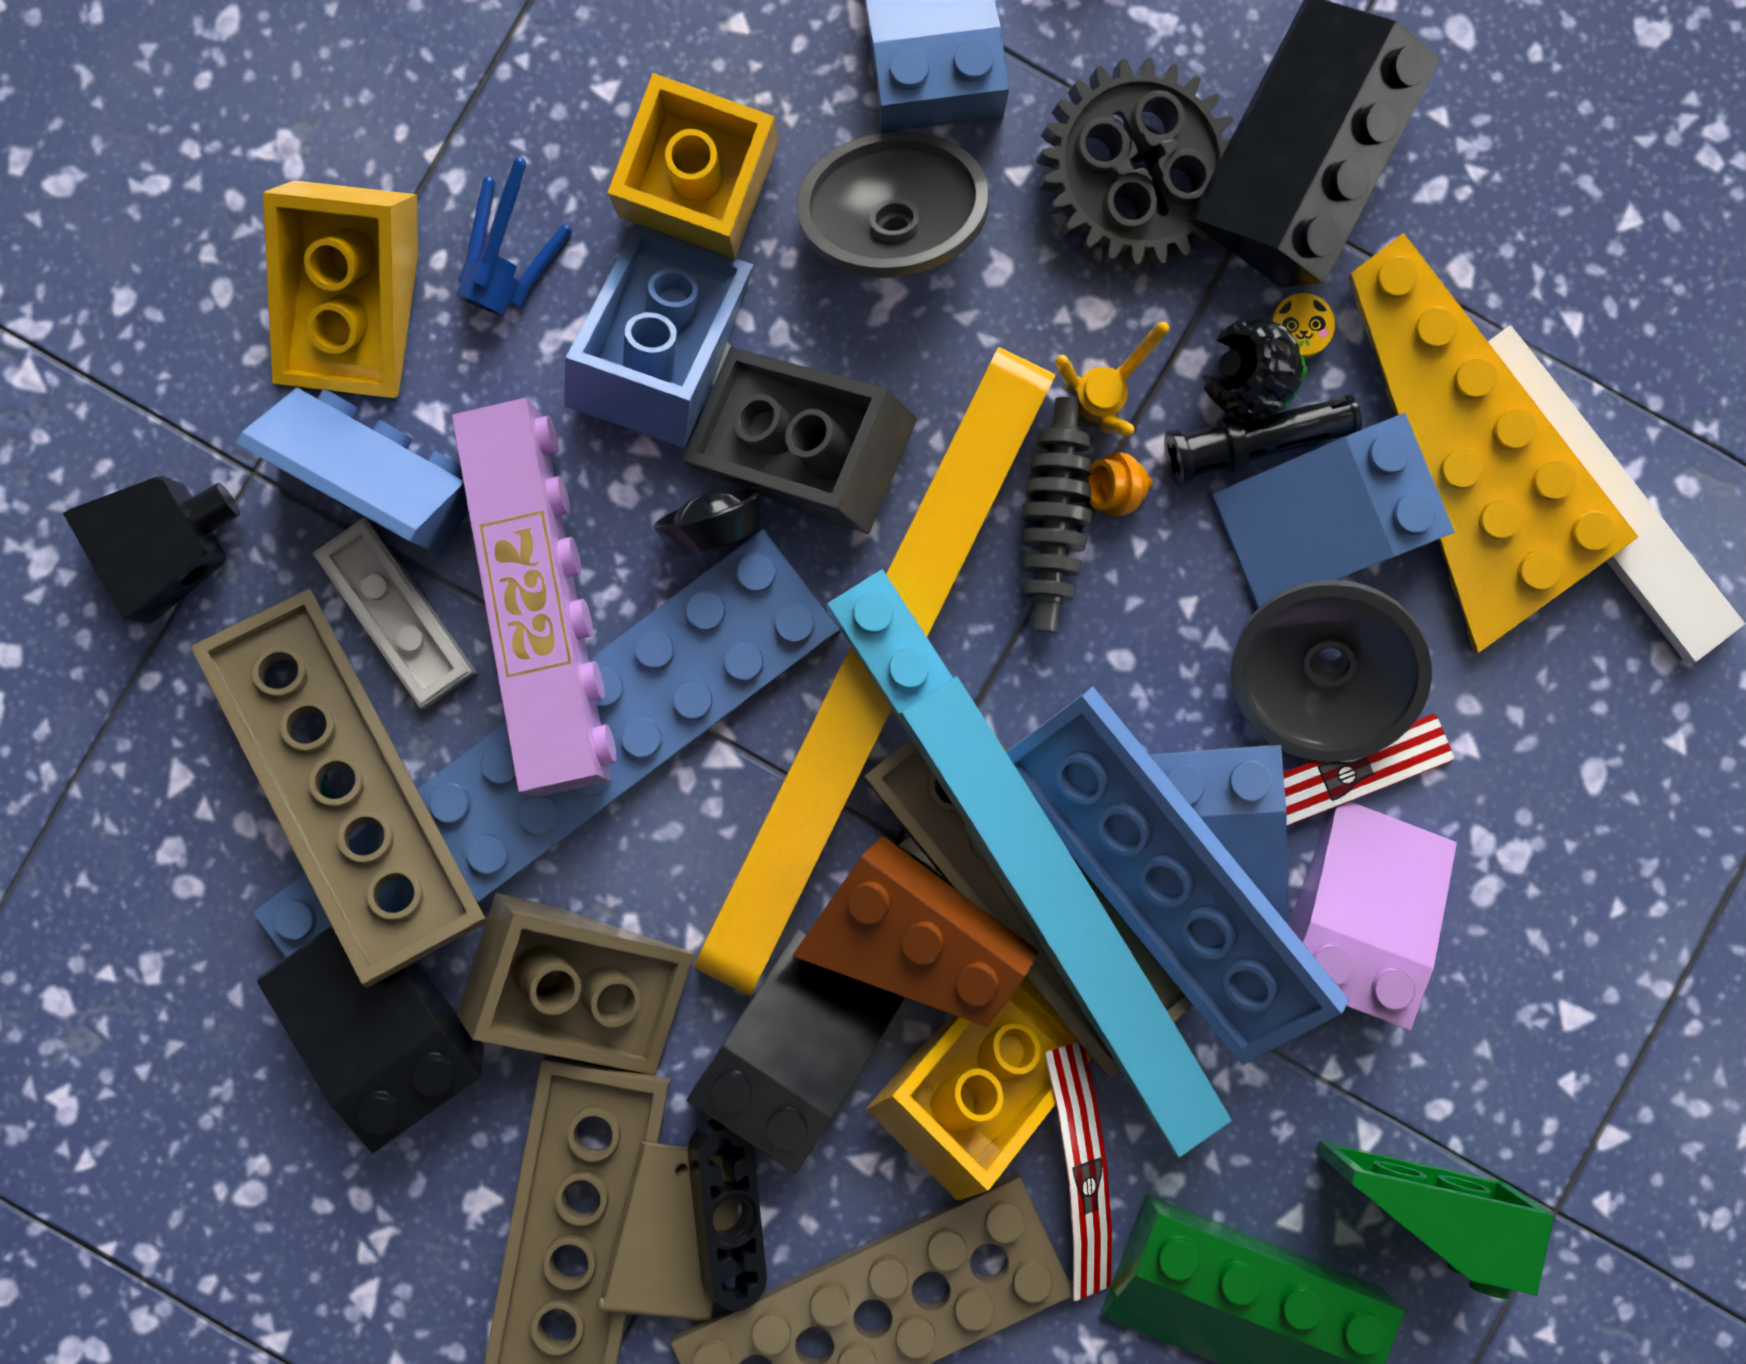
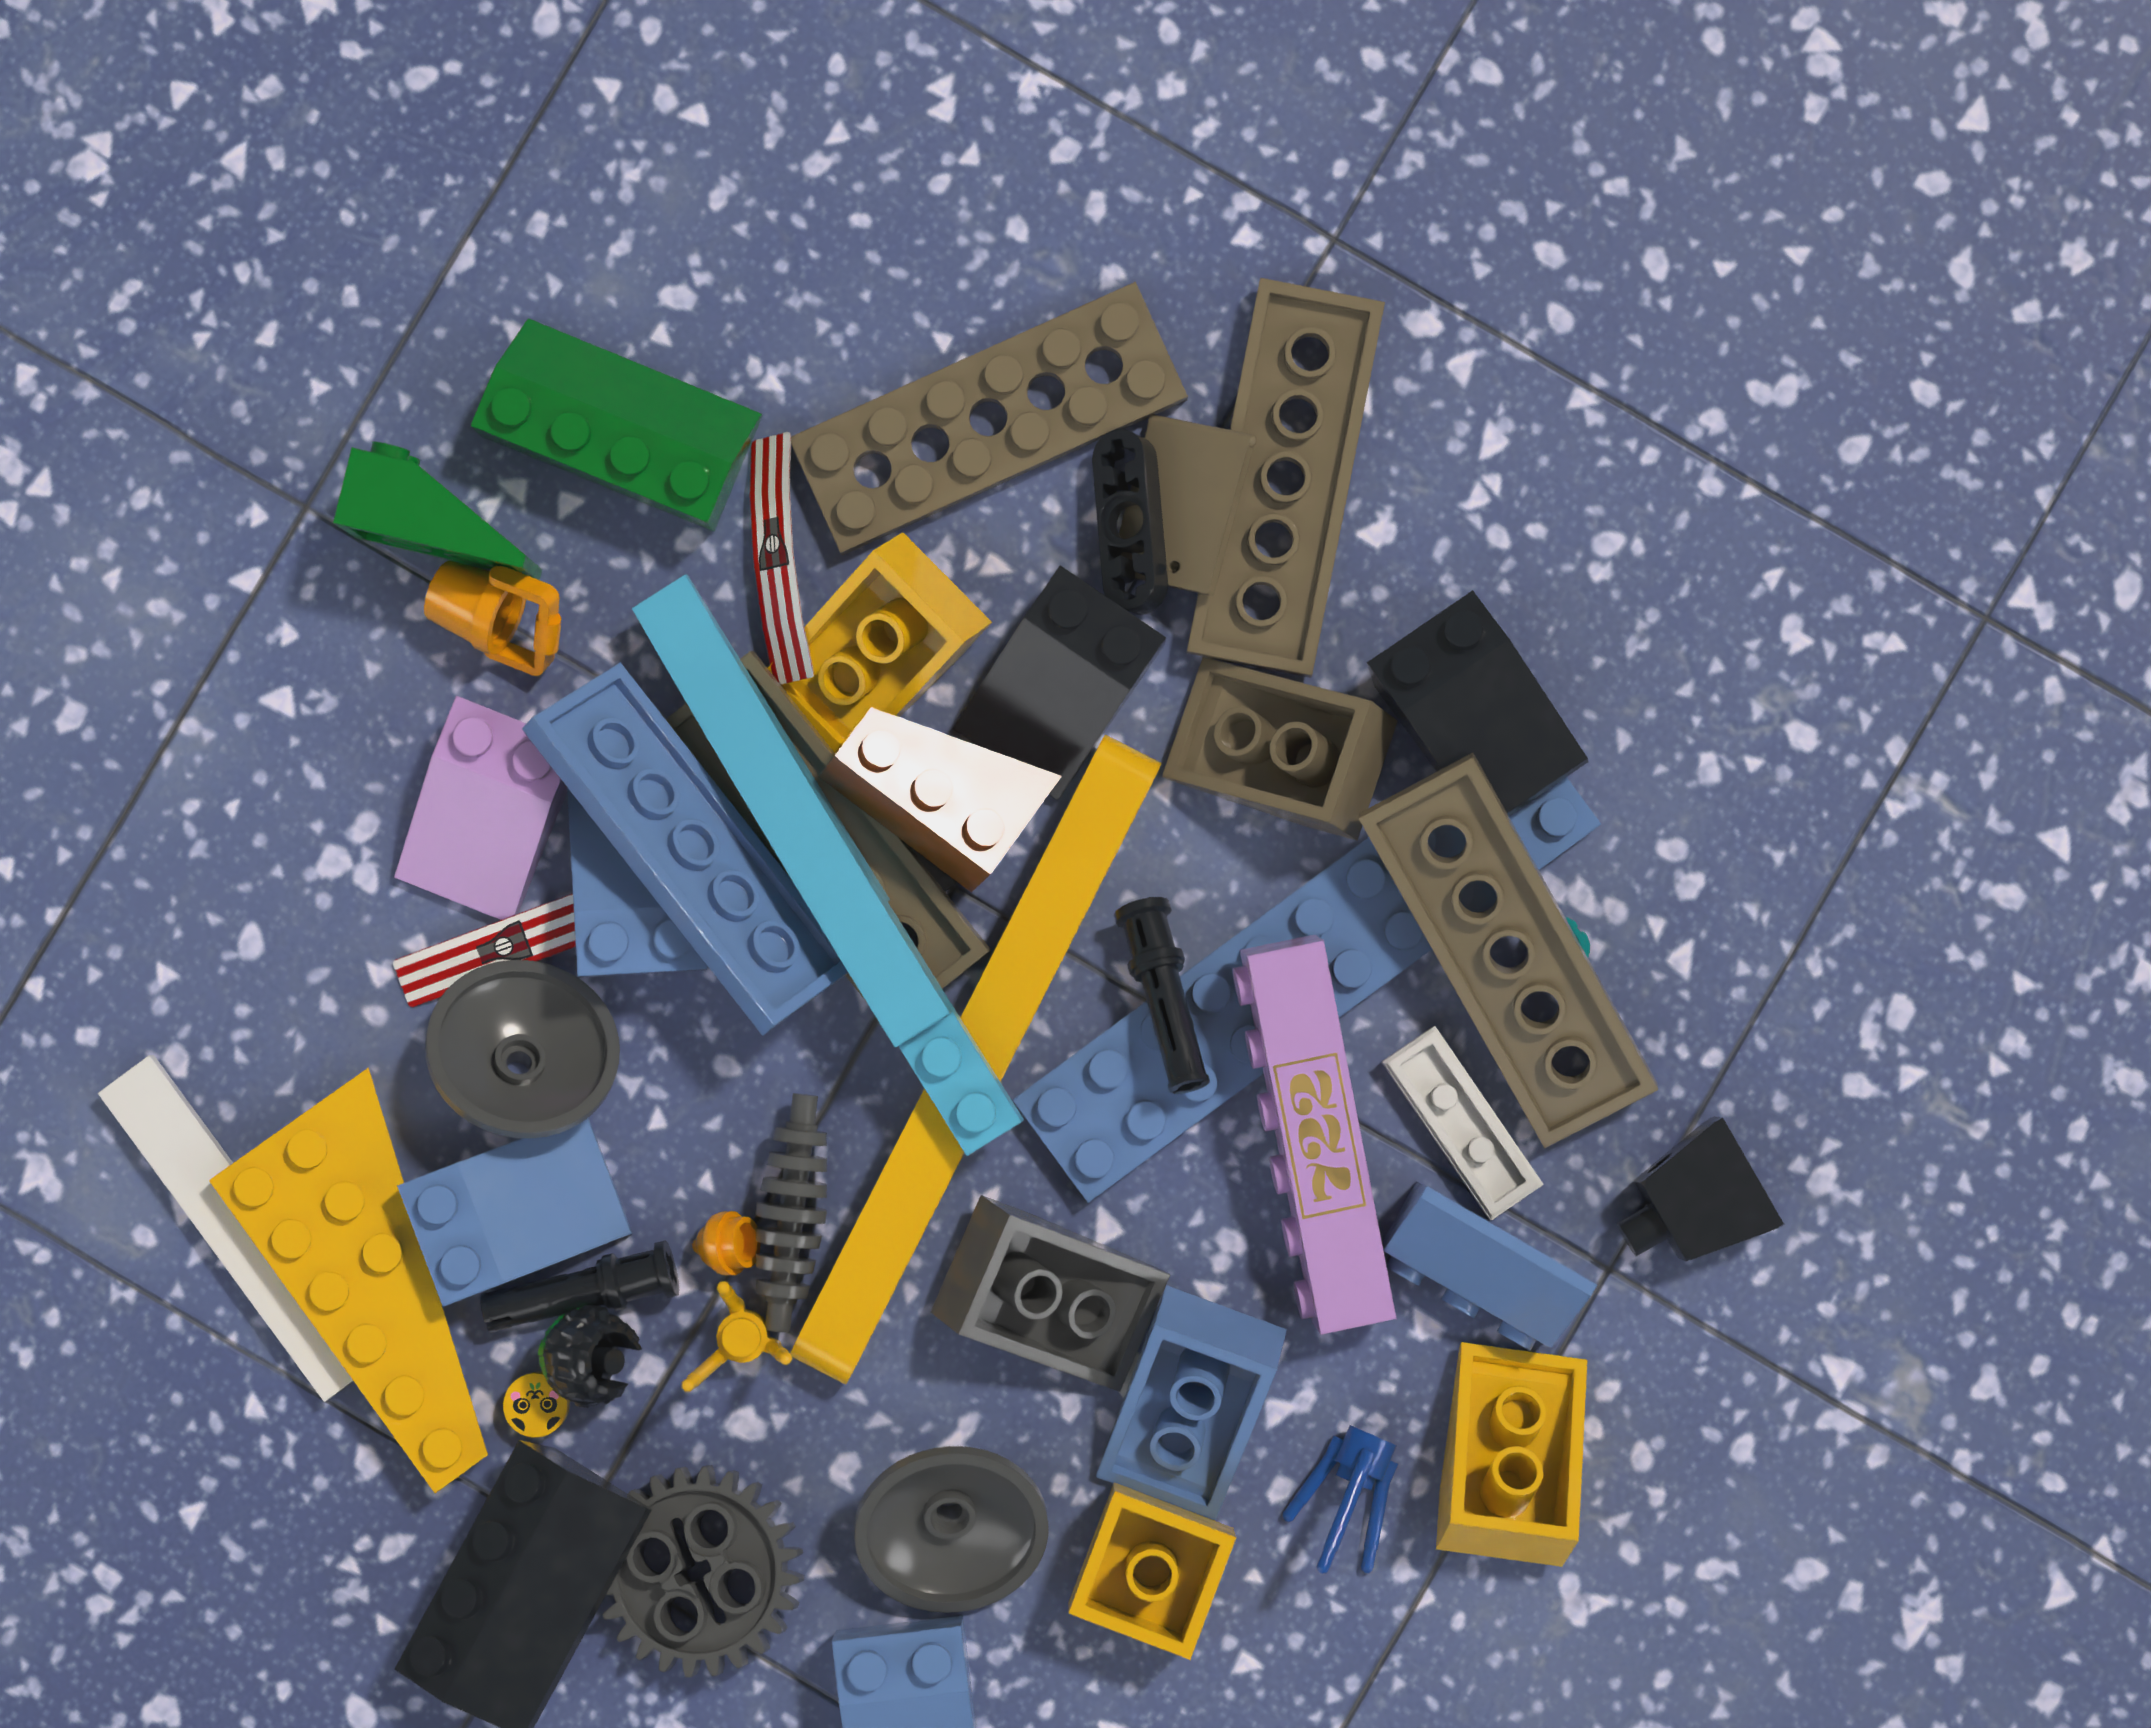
camera: 170 degrees left, 0 degrees up
(694, 762) = (1157, 967): none -> black pin
(710, 521) = (1138, 1208): black hat -> none
(1371, 1114) = (488, 609): none -> light orange piece

